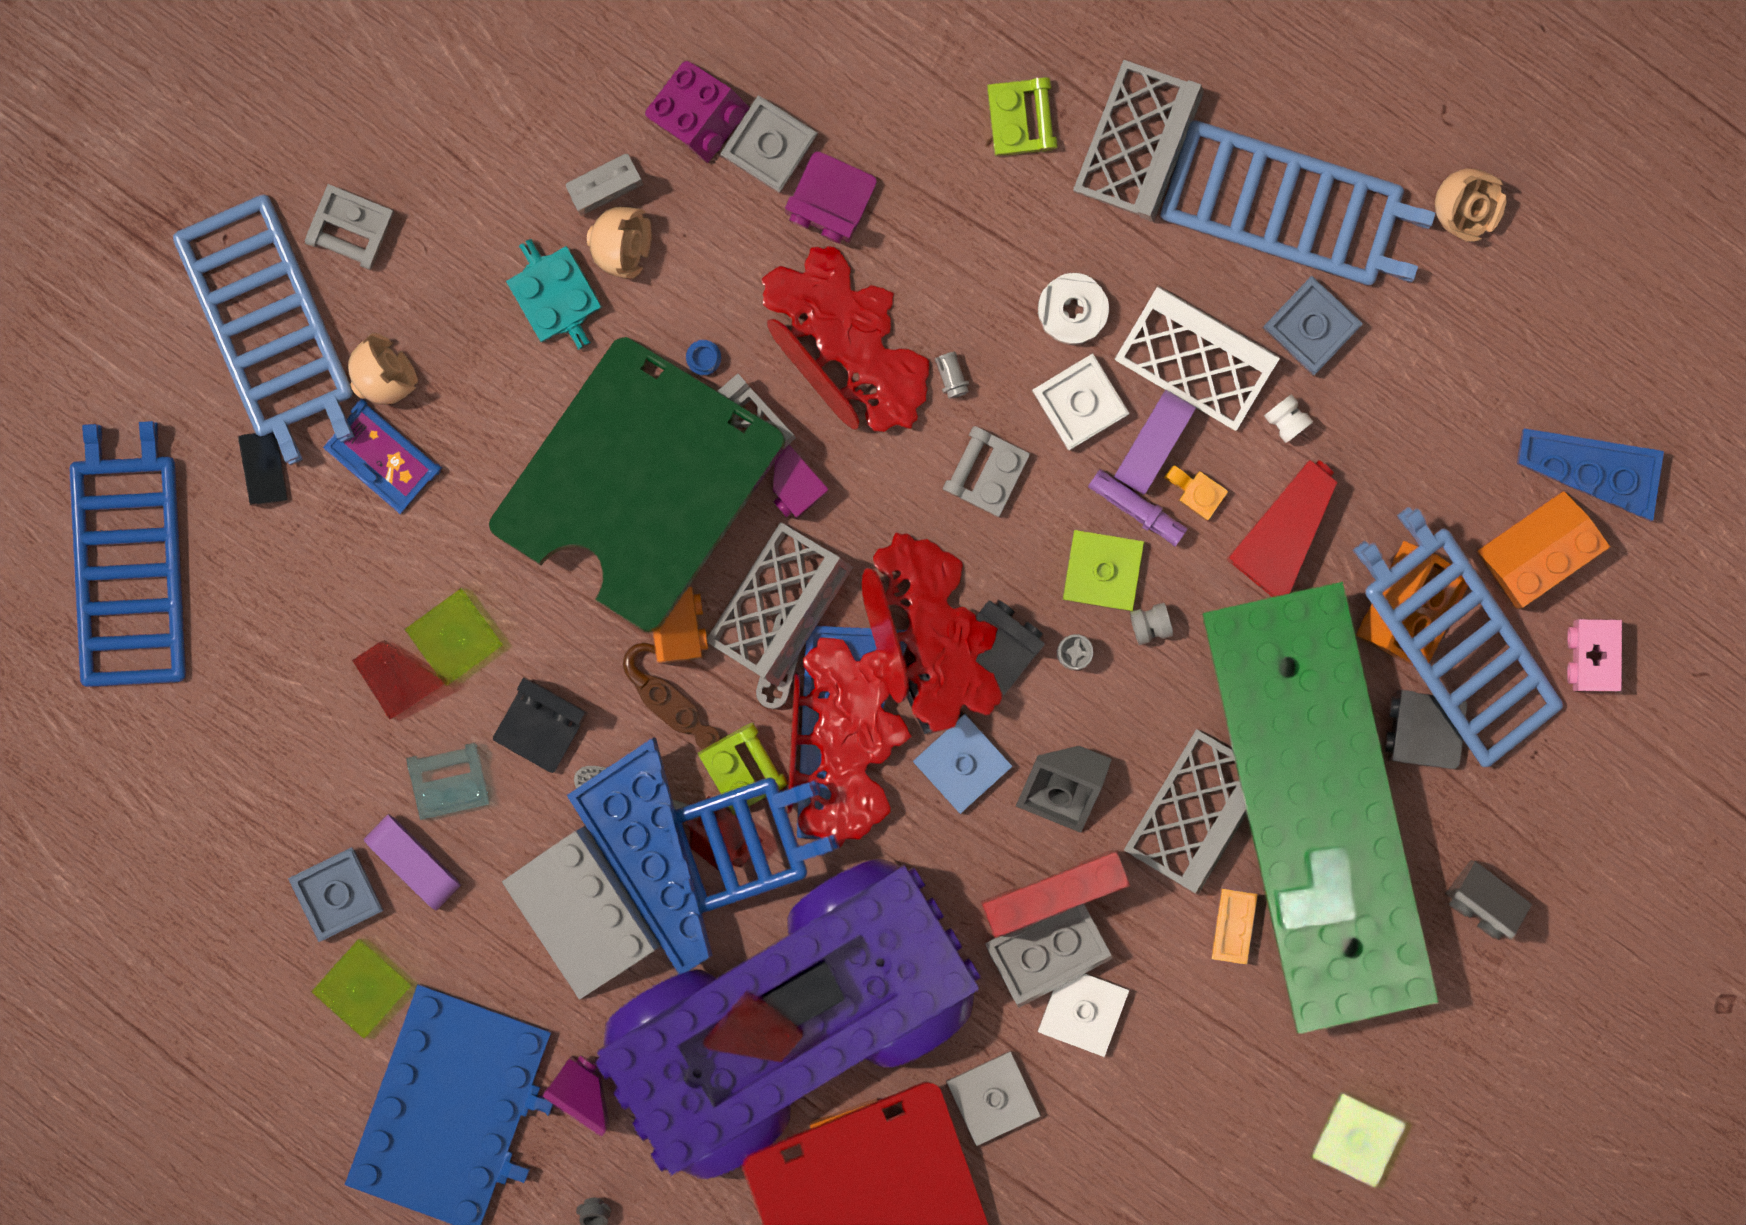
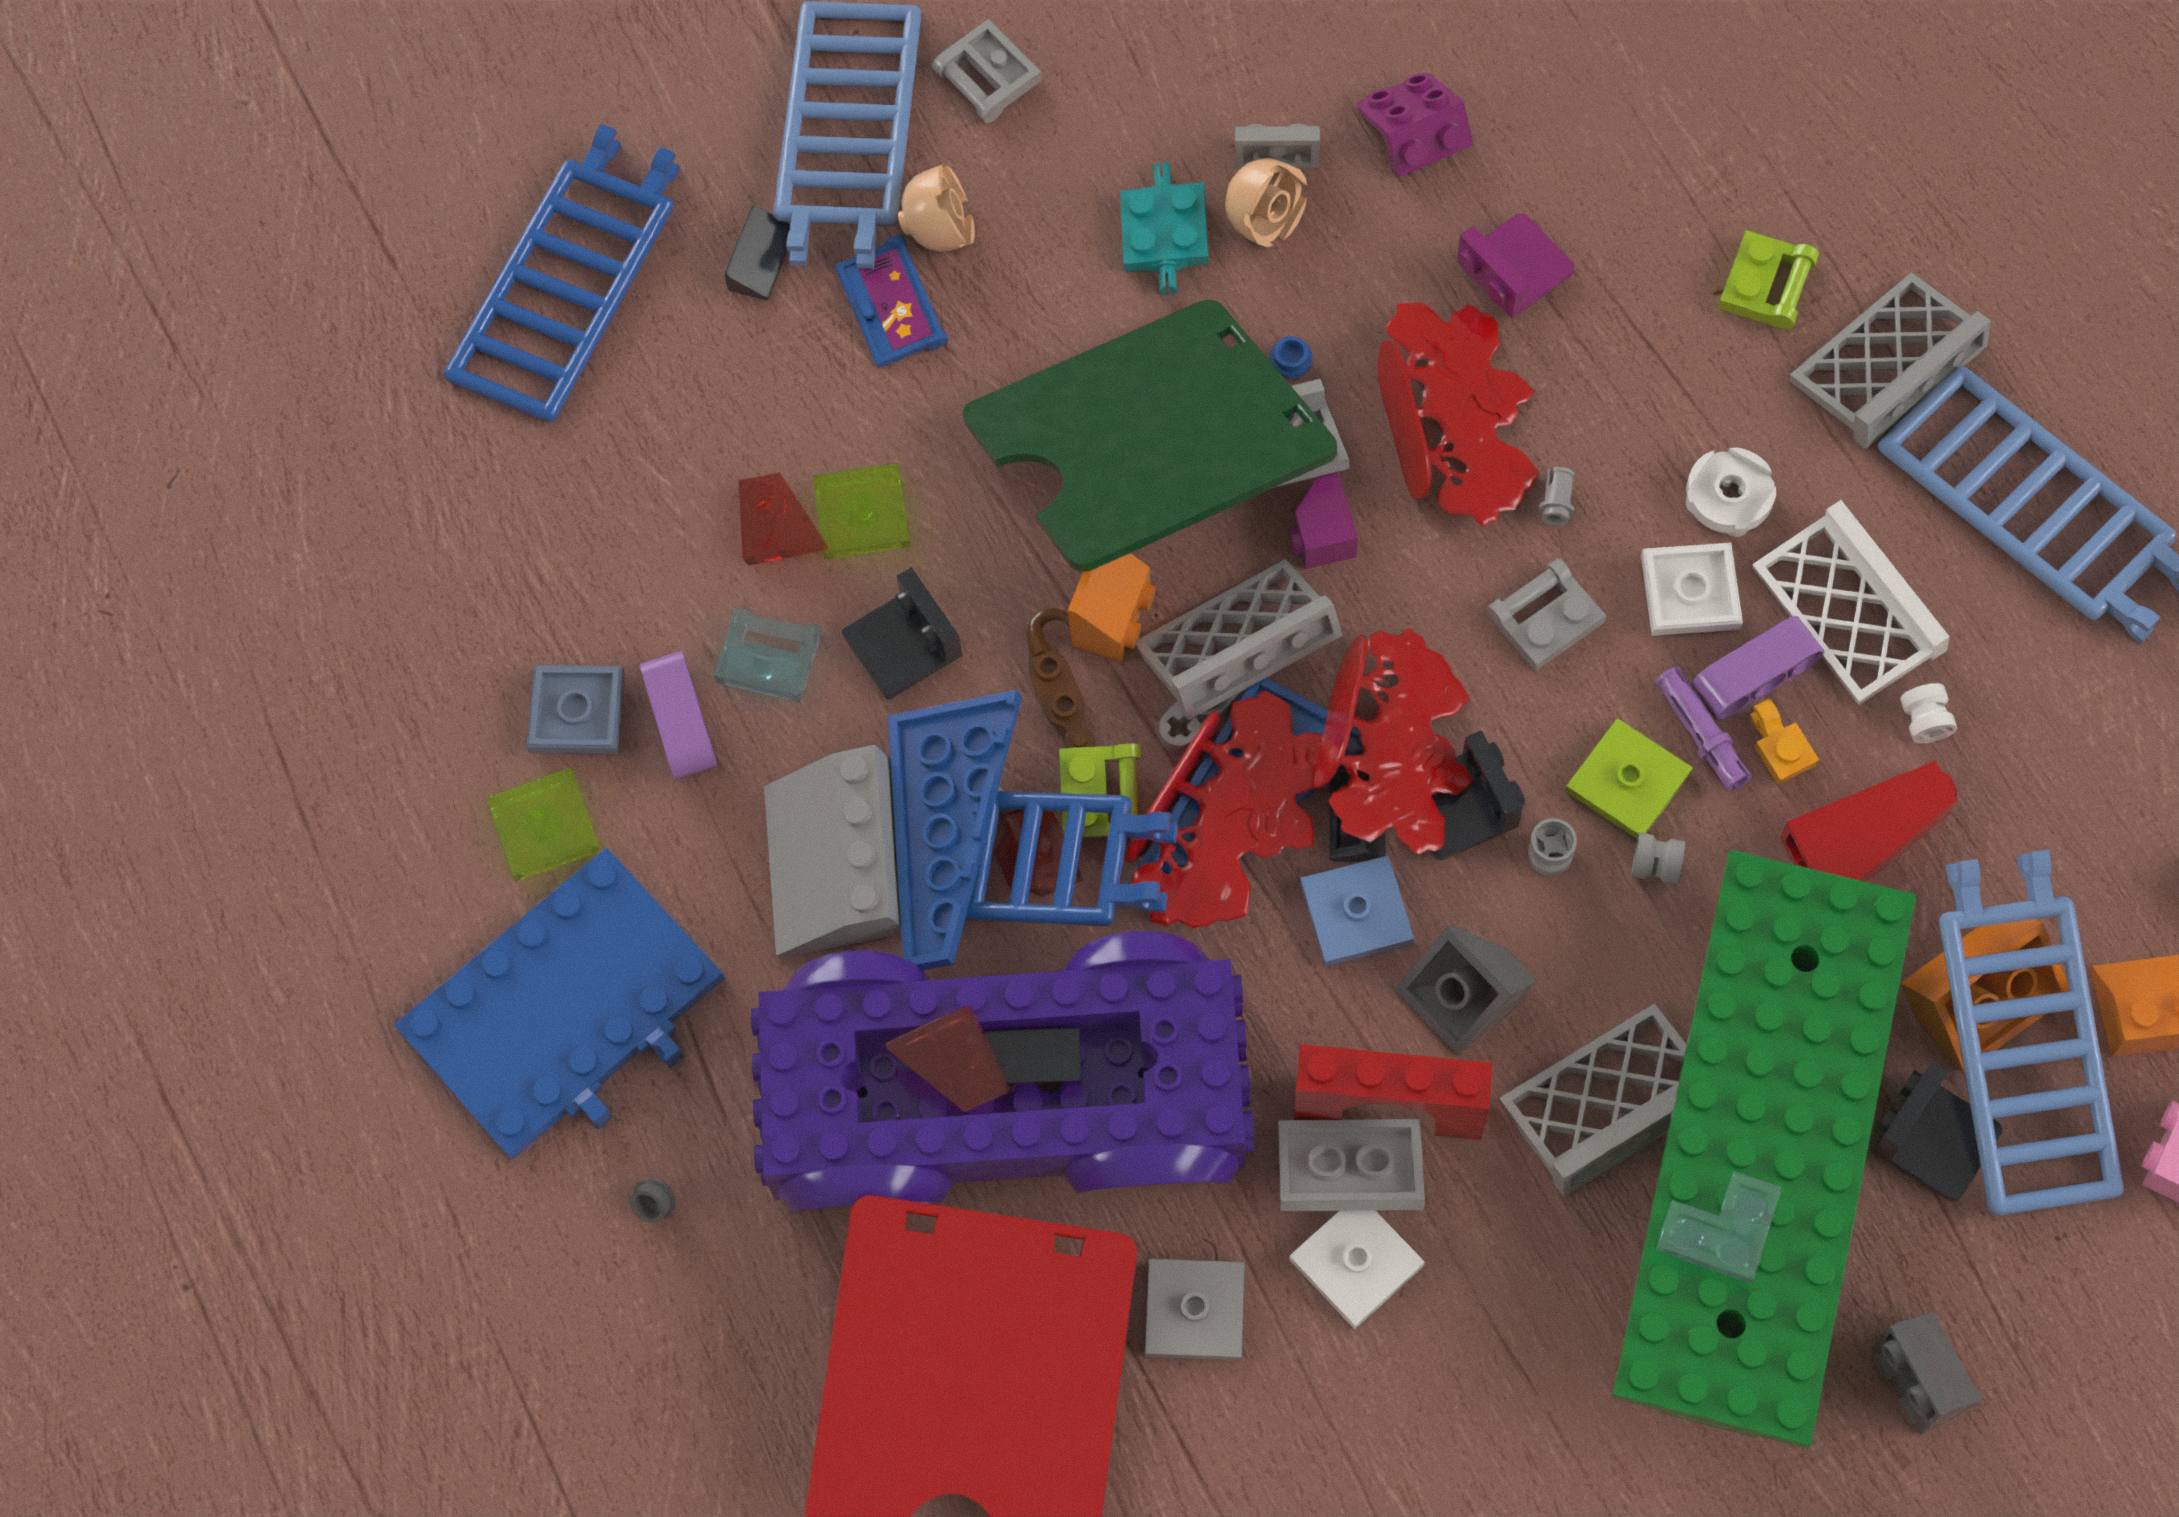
camera: 30 degrees right, 20 degrees down
(580, 1094) = (717, 1049): magenta slope -> none
(768, 144) = (1475, 184): light grey plate -> none
(1234, 926) = (1590, 1251): light orange plate -> none
(1312, 325) = (2002, 630): sand blue plate -> none

